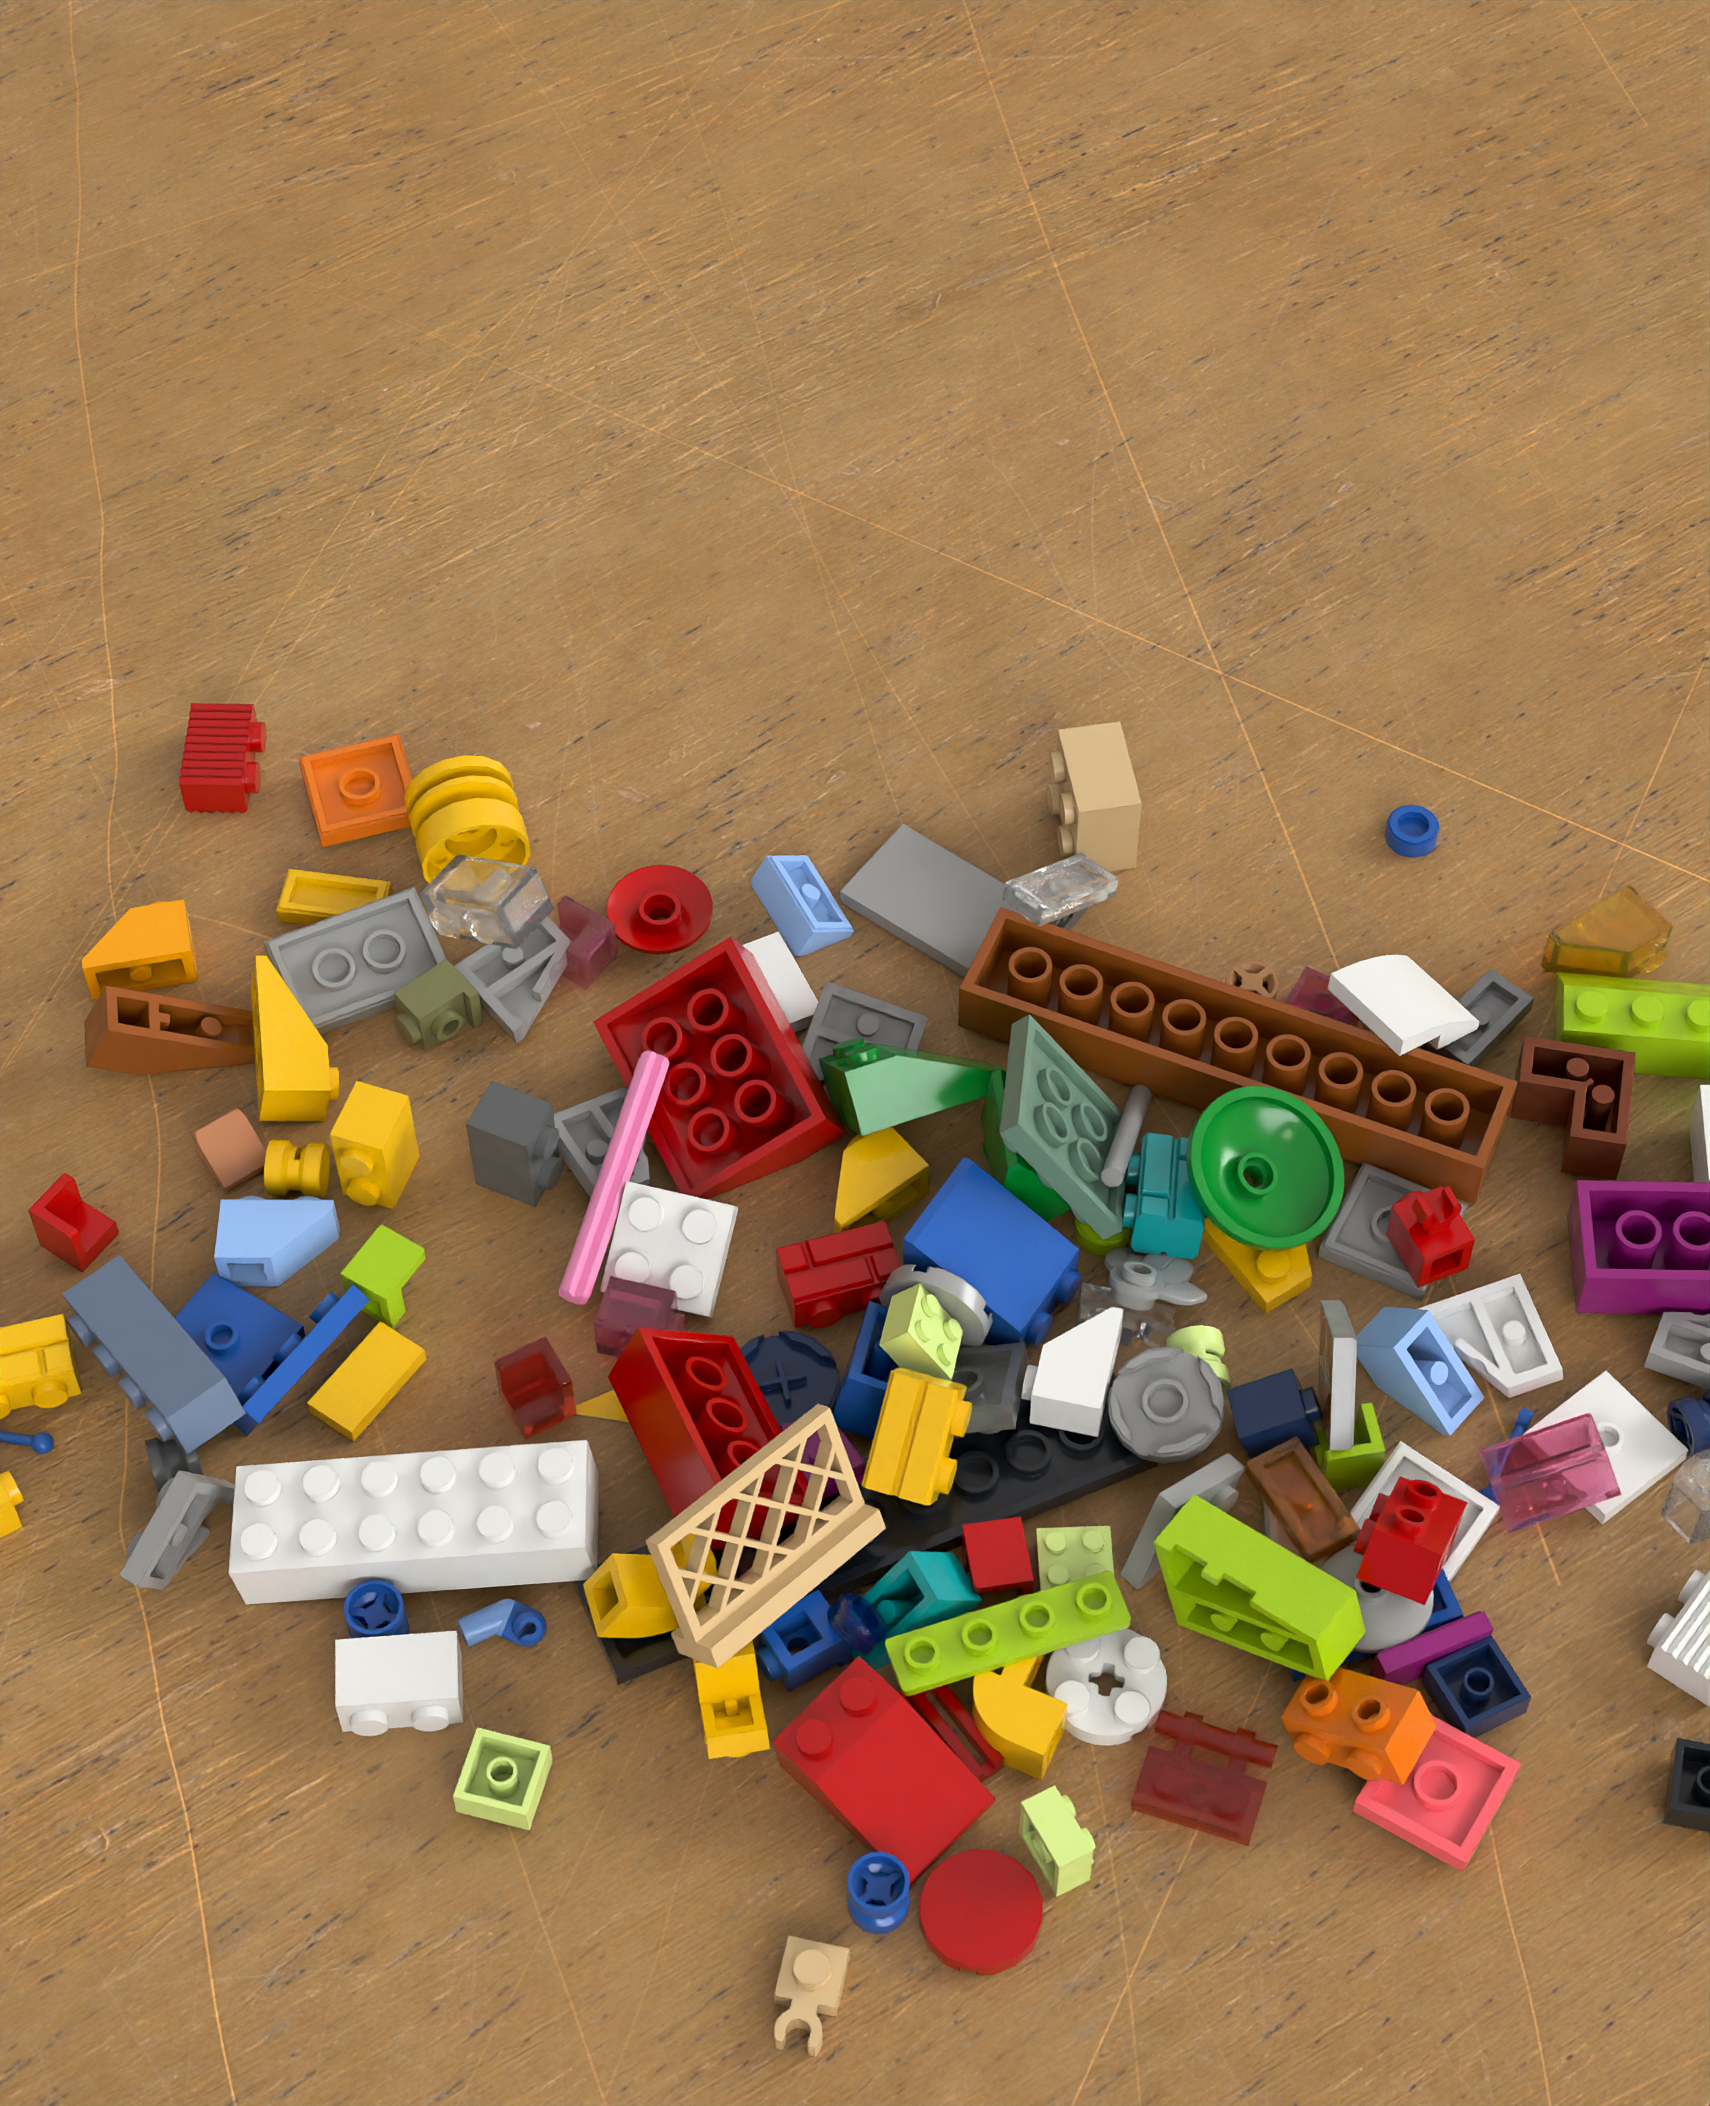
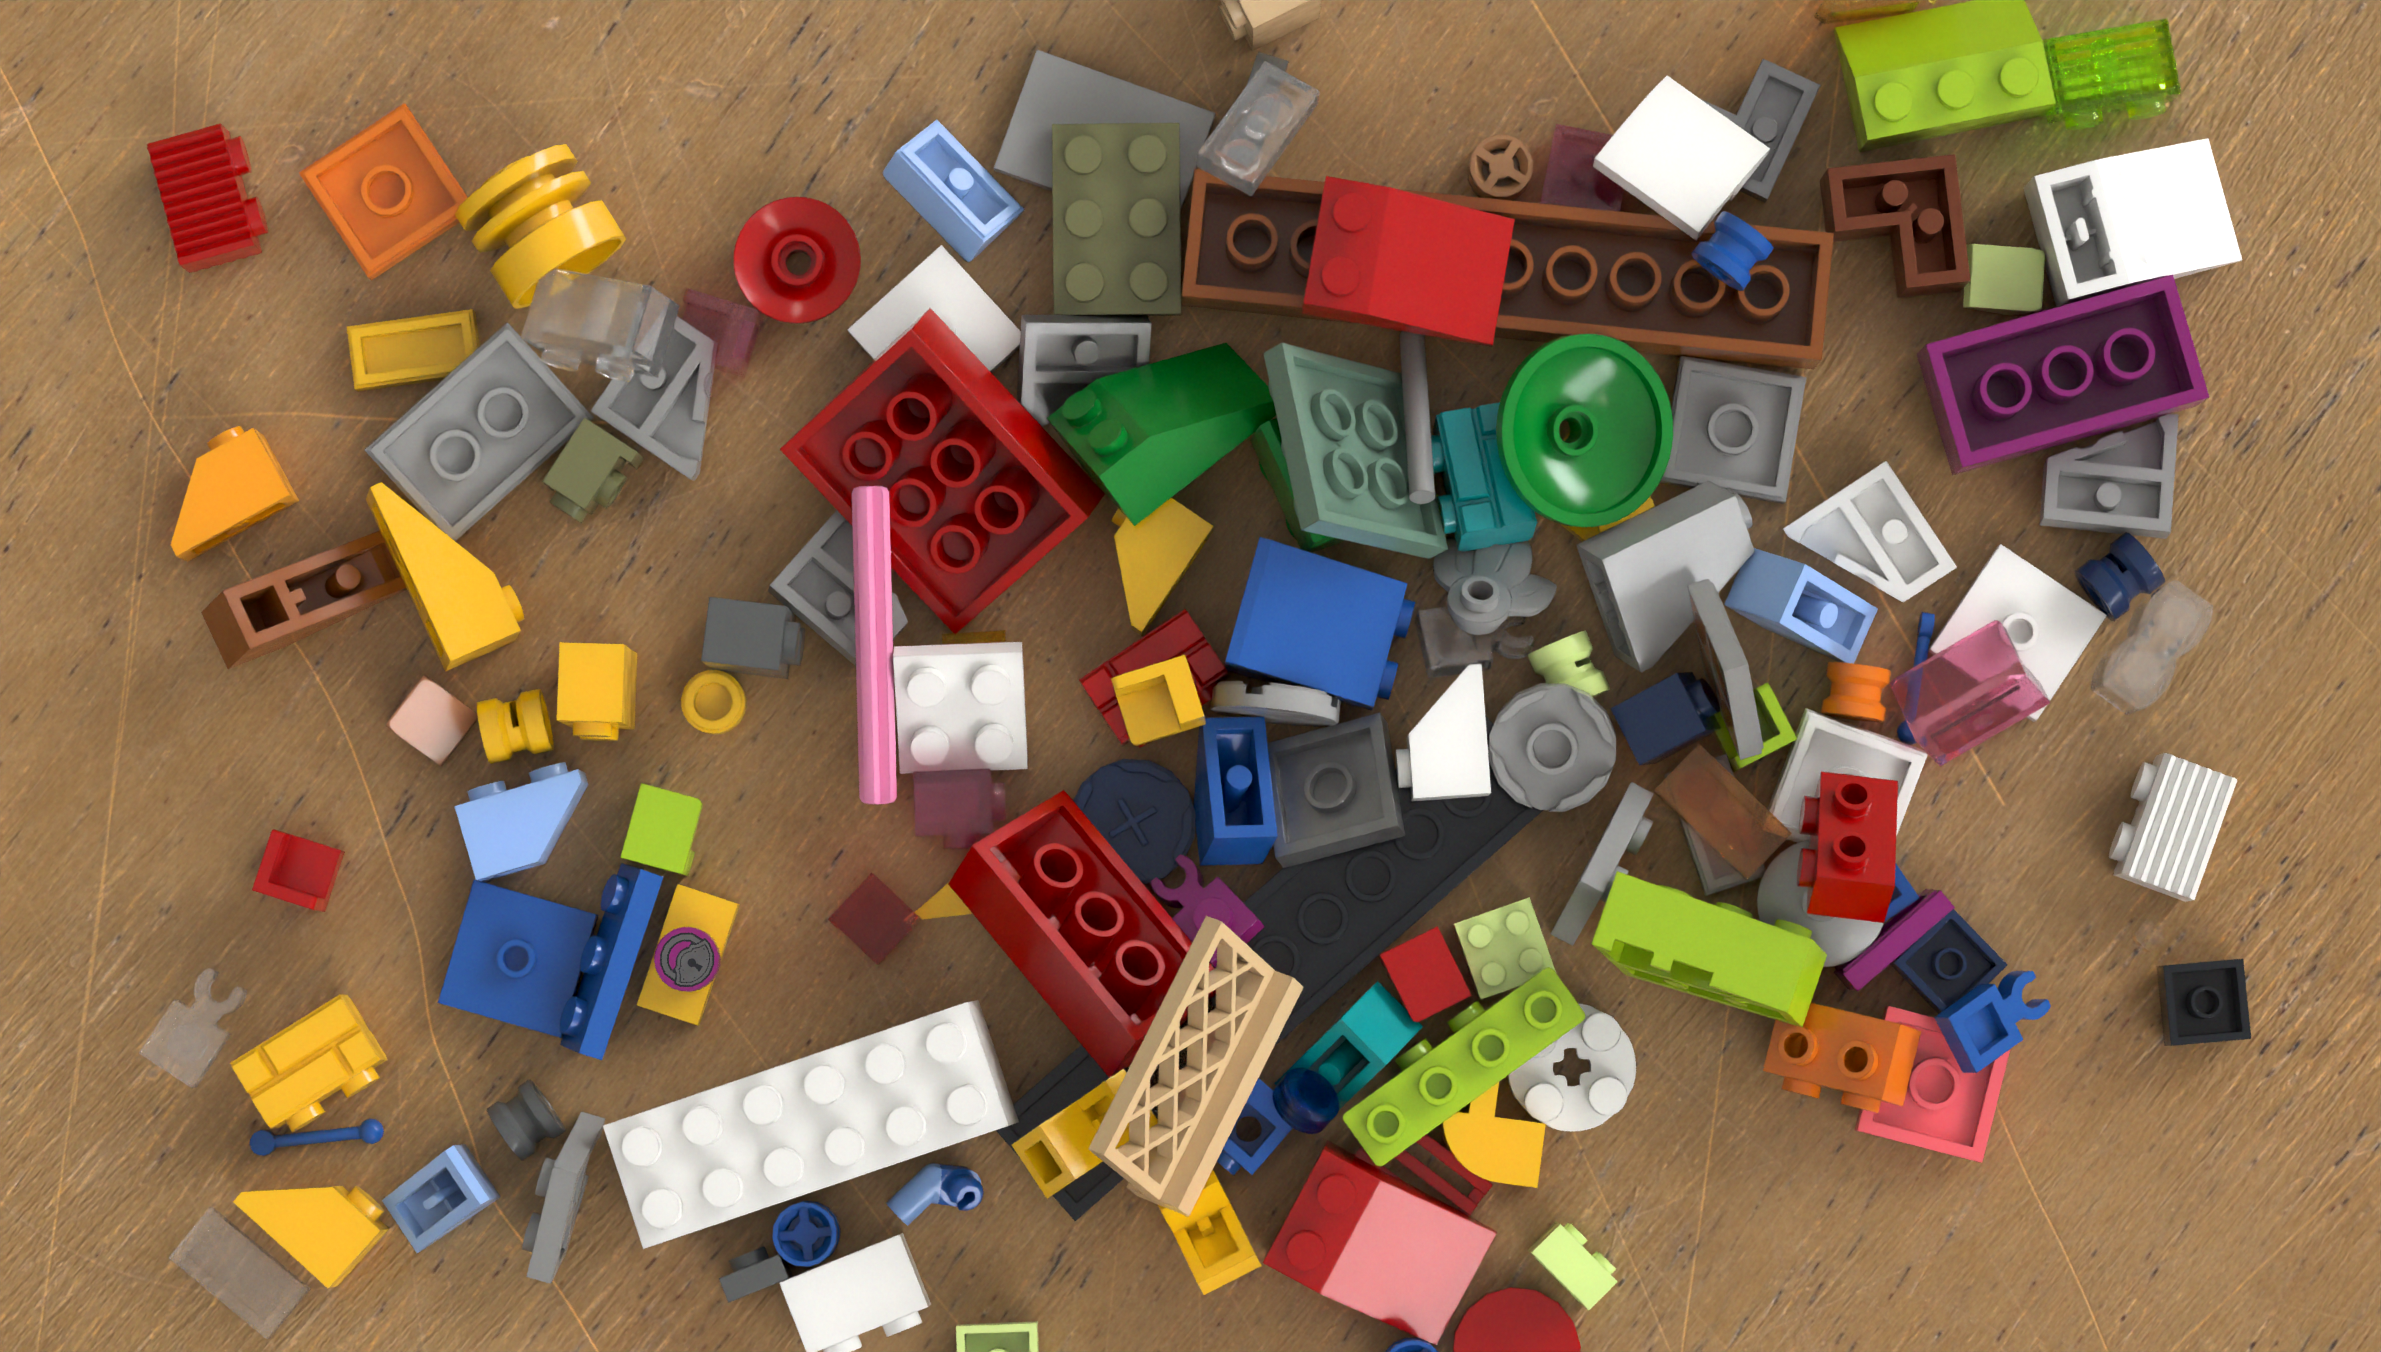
camera: 15 degrees left, 30 degrees up
(77, 1501) = (440, 1197): none -> light blue slope
(153, 1355) = (457, 1019): sand blue brick -> none
(312, 1639) = (754, 1272): none -> dark grey plate
(364, 1373) = (687, 959): none -> tile
(467, 1202) = (713, 702): none -> yellow tile
(836, 1265) = (1158, 700): none -> yellow panel
(916, 1437) = (1307, 884): yellow brick -> none
(921, 1333) = (1275, 759): yellowish green piece -> none
(926, 941) = (1116, 219): none -> olive plate
(1148, 999) = (1407, 262): none -> red slope
(1199, 1793) = (1698, 1158): clear red plate -> none
(1282, 1298) = (1647, 562): none -> light grey slope
(1428, 1059) = (1732, 251): none -> blue wheel
(1430, 1235) = (1778, 446): red brick -> none
(1450, 1442) = (1855, 692): none -> orange wheel
(1499, 1734) = (1984, 1020): none -> blue plate
(1654, 1163) = (2004, 279): none -> yellowish green slope

